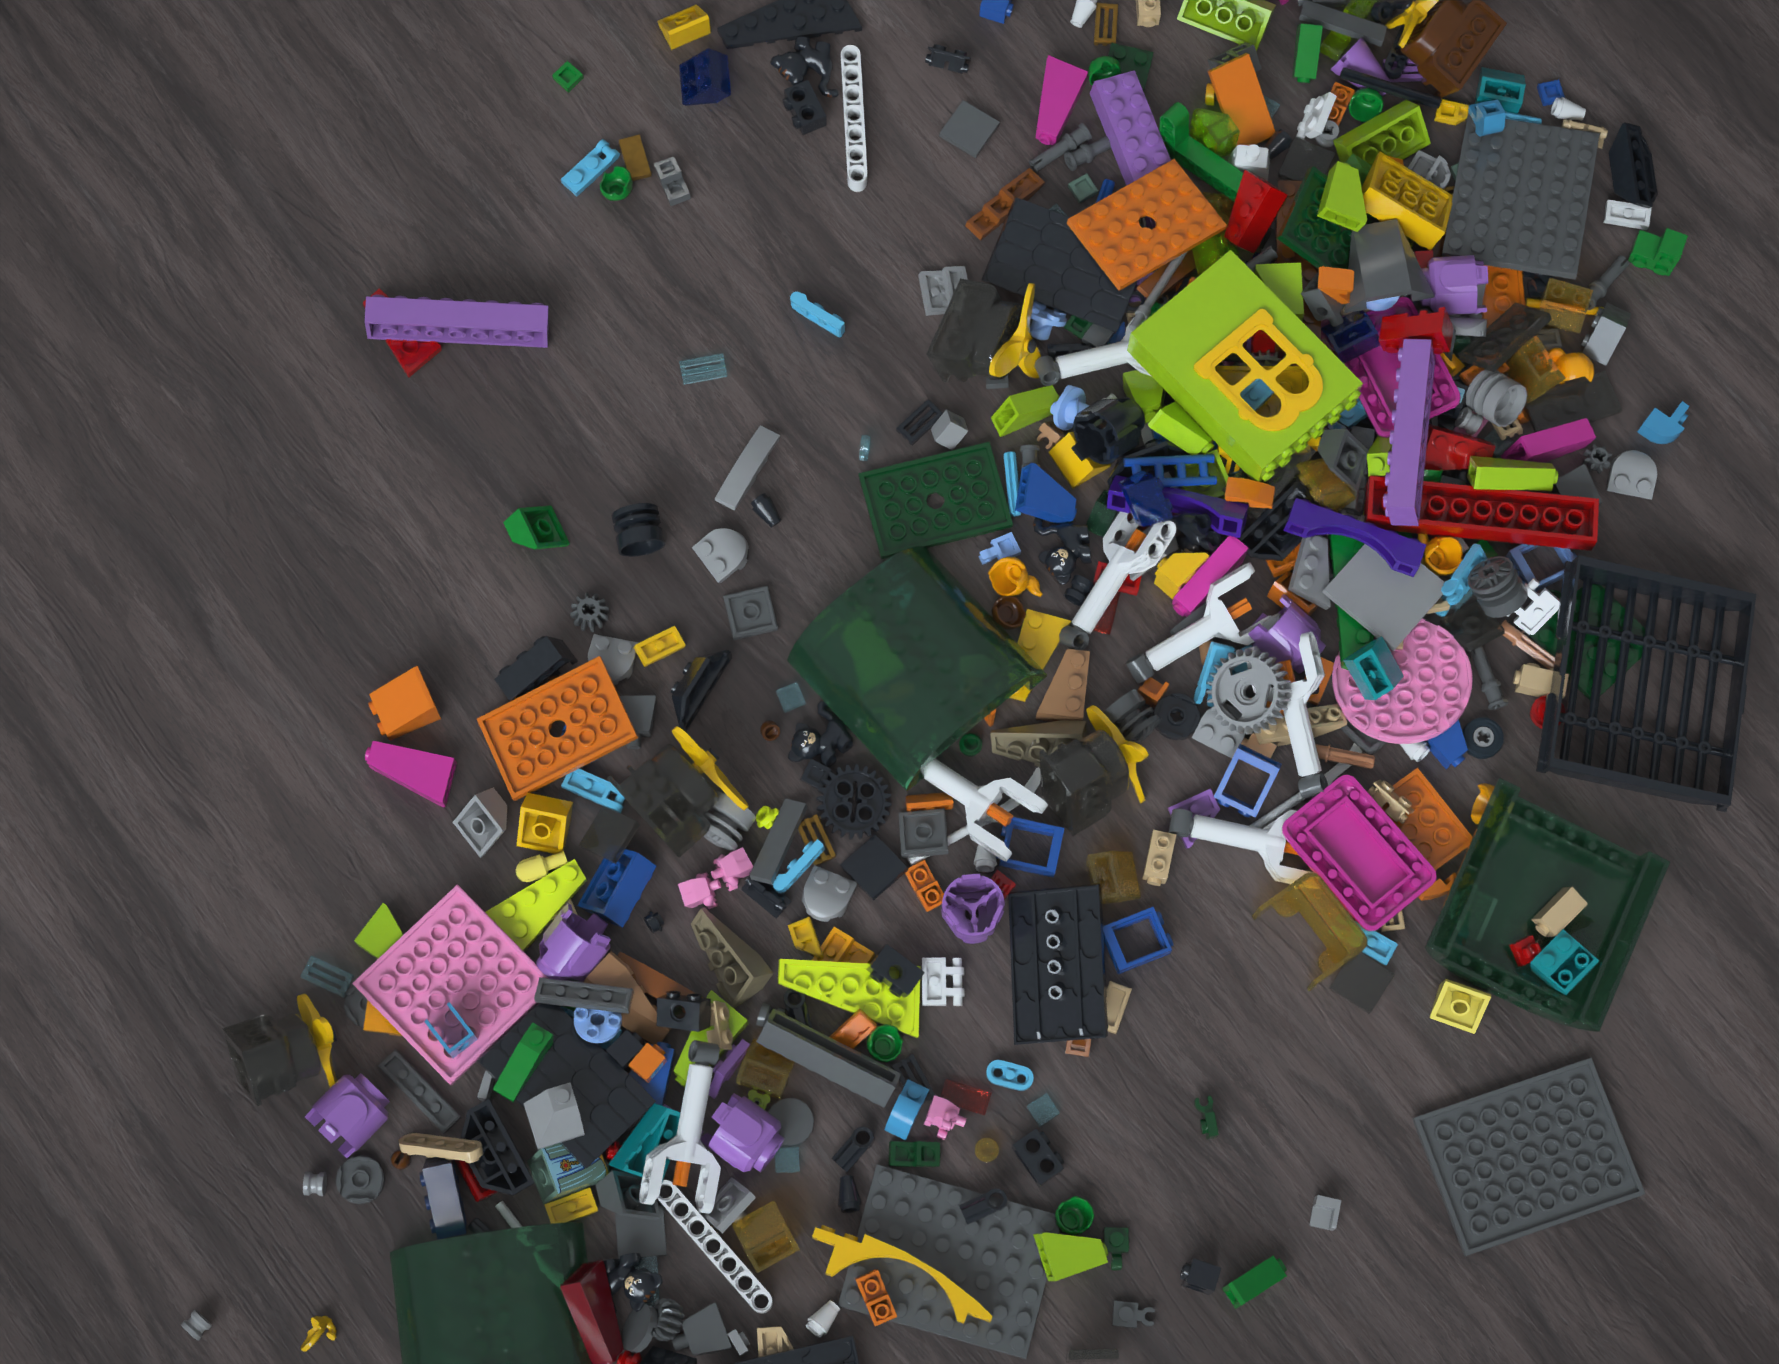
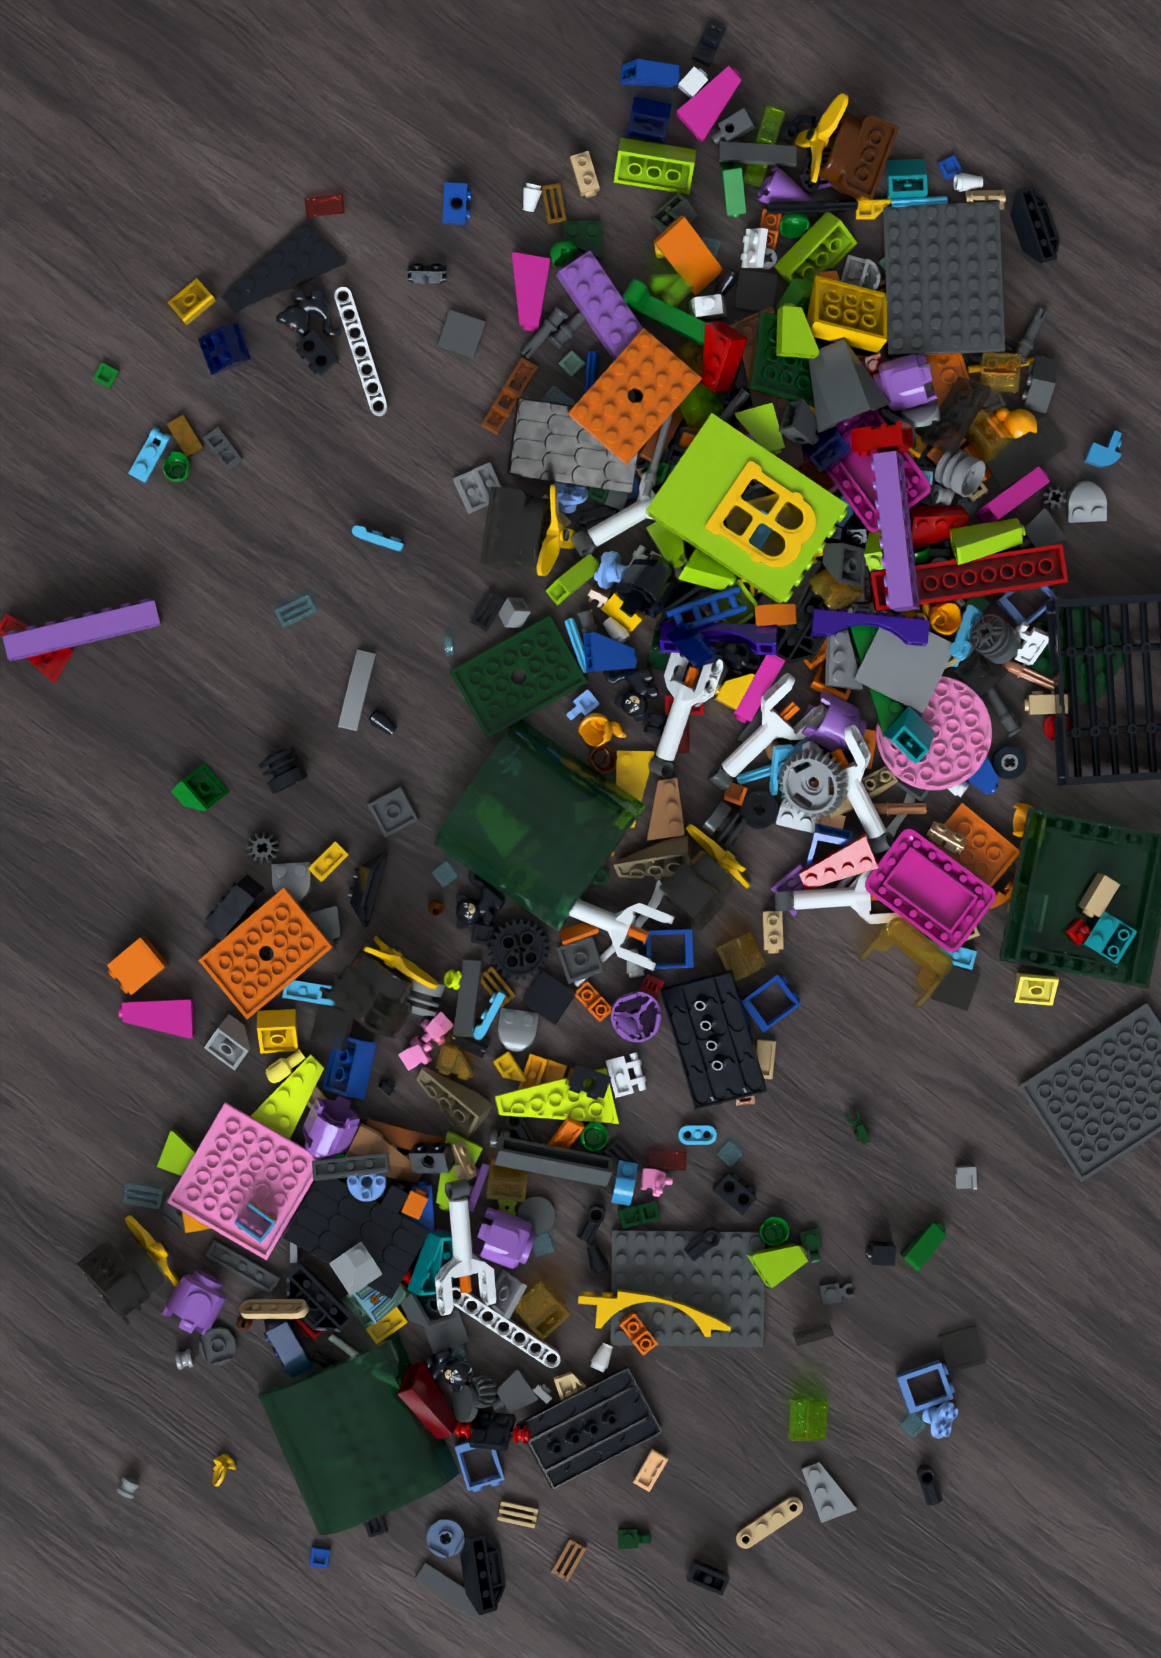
camera: 10 degrees left, 15 degrees up
(524, 1061) = (319, 1232): green slope -> none
(722, 552) = (356, 767): light grey slope -> none
(740, 908) = (454, 1060): none -> clear yellow slope
(986, 1150) = (694, 1196): clear yellow plate -> none
(1061, 476) = (616, 630): none -> white cone
(1179, 676) = (754, 774): none -> medium azure axle
(1262, 794) = (848, 861): none -> wing
(1336, 283) = (805, 416): orange slope -> none
(1488, 117) = (900, 215): dark azure brick -> none
(1627, 215) = (1033, 269): white plate -> none
(1657, 252) = (1069, 298): green brick -> none

